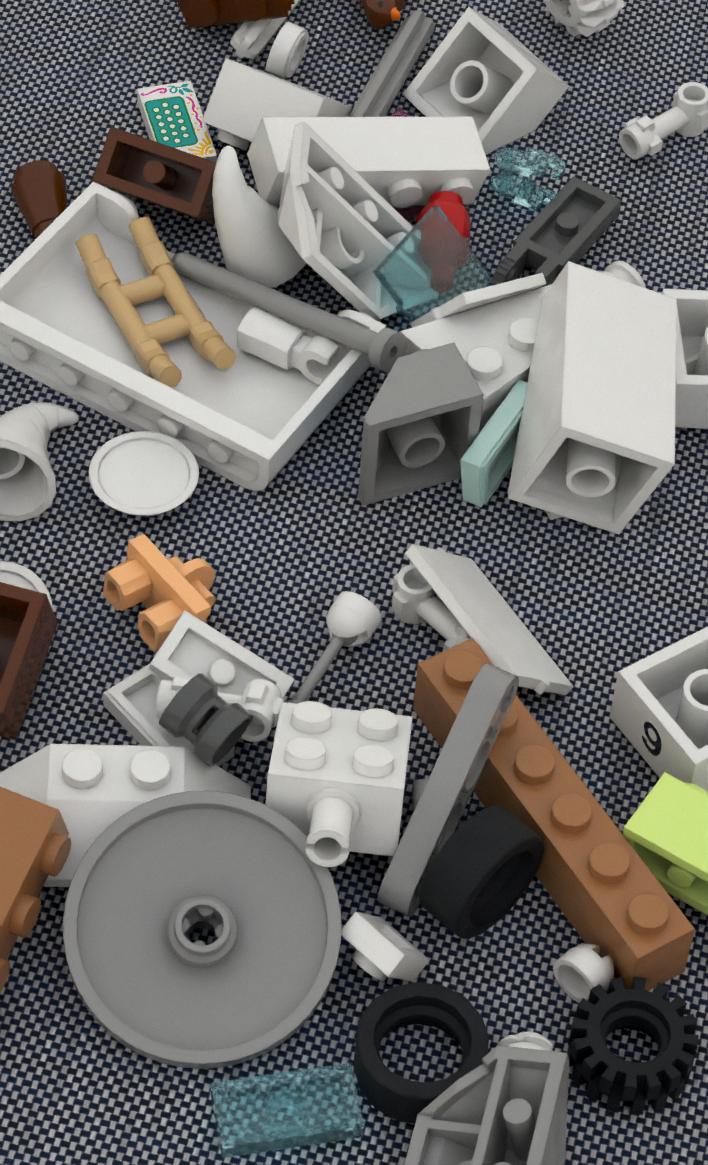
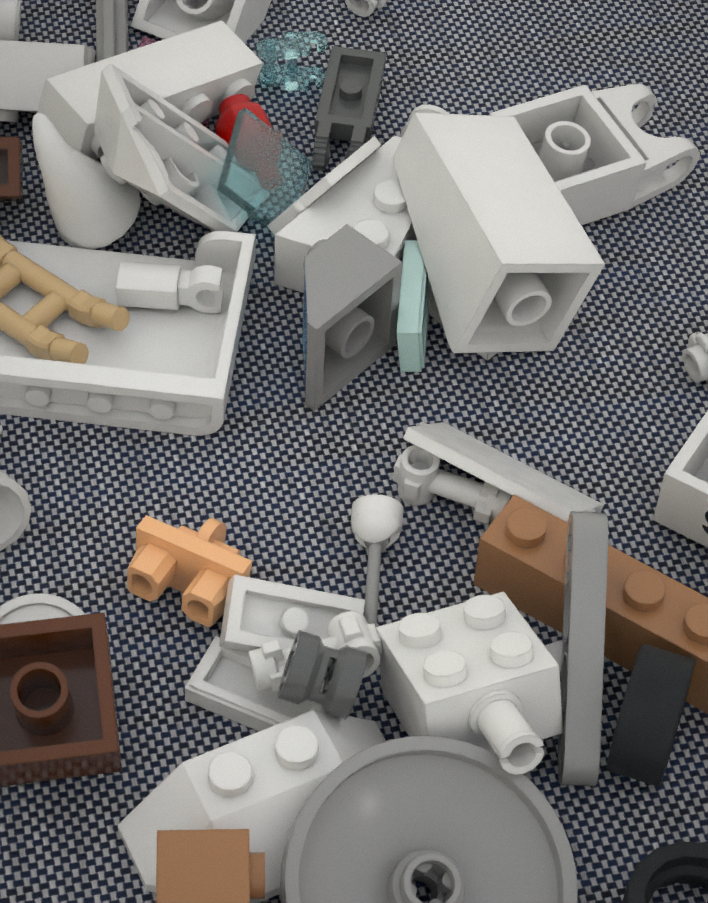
camera: 25 degrees left, 0 degrees up
(143, 473) = (100, 457): white piece -> none
(381, 347) = (272, 254): light grey bar -> none
(382, 949) = (598, 830): white plate -> none

